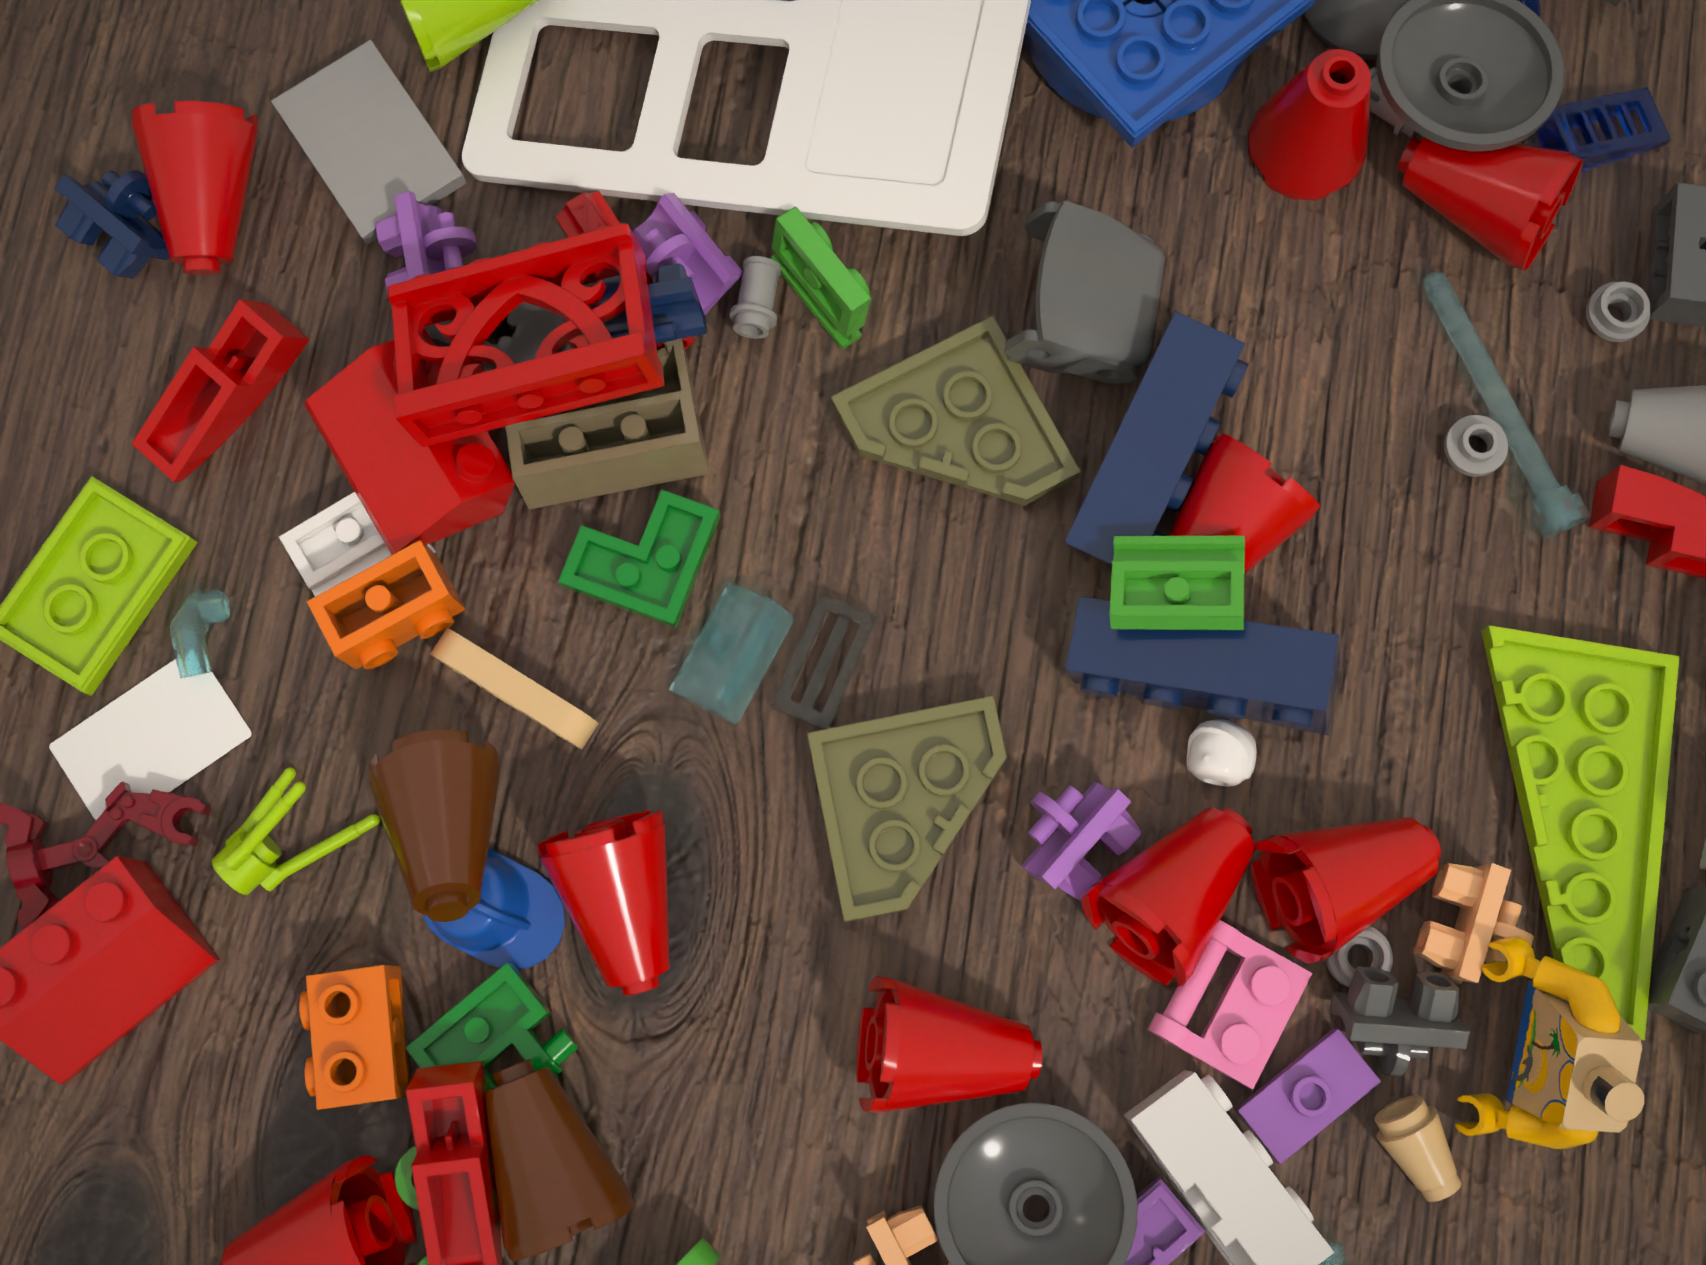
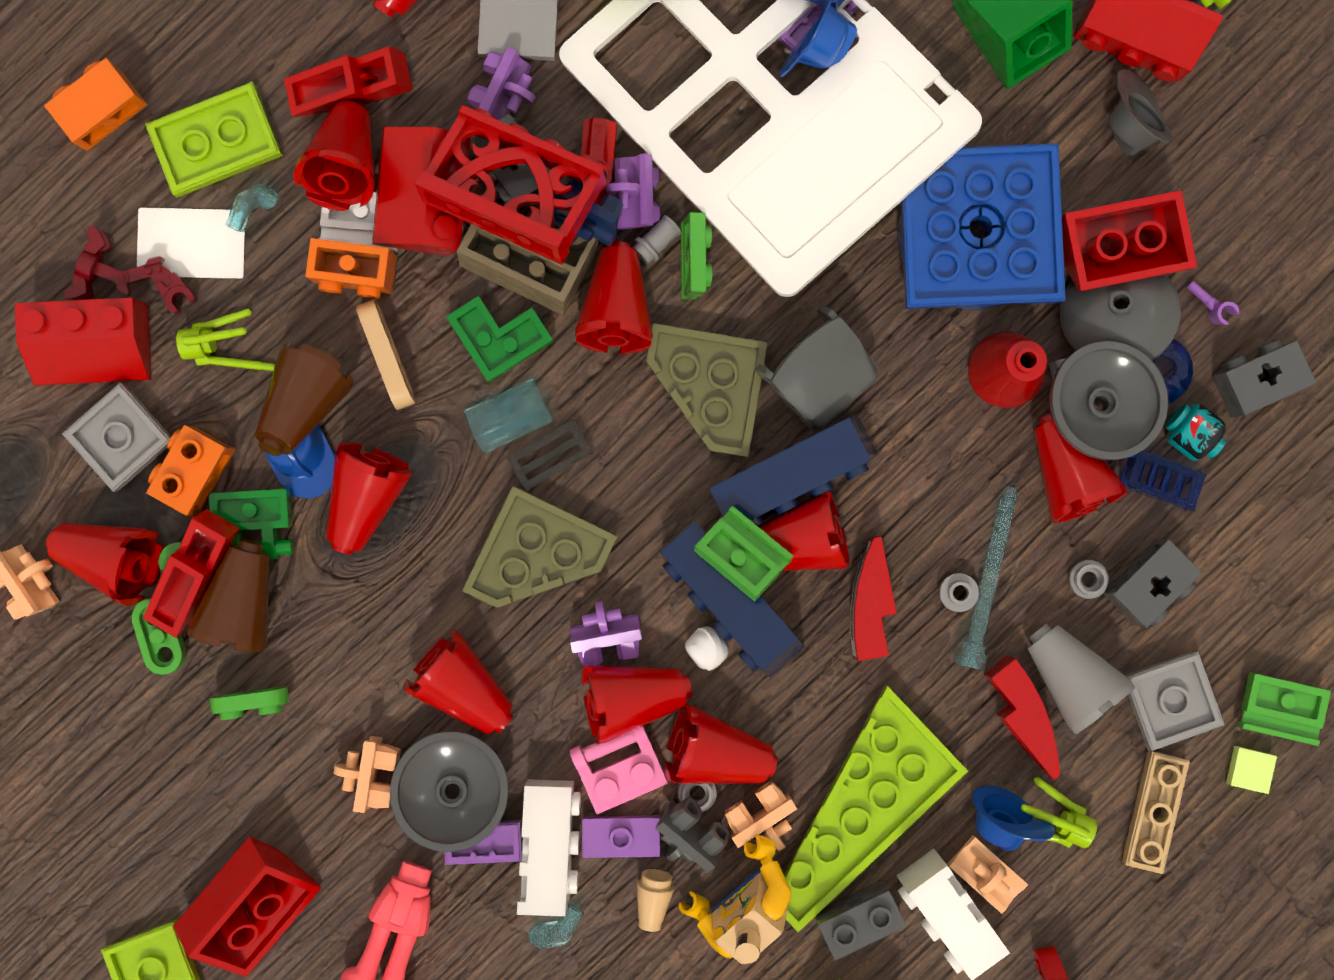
camera: 40 degrees right, 10 degrees up
(226, 1067) = (118, 437): none -> light grey plate
(277, 484) = (339, 160): none -> red cone
(768, 408) = (615, 304): none -> red cone
(1378, 535) = (869, 602): none -> red slope
(1598, 43) = (1196, 431): none -> teal head

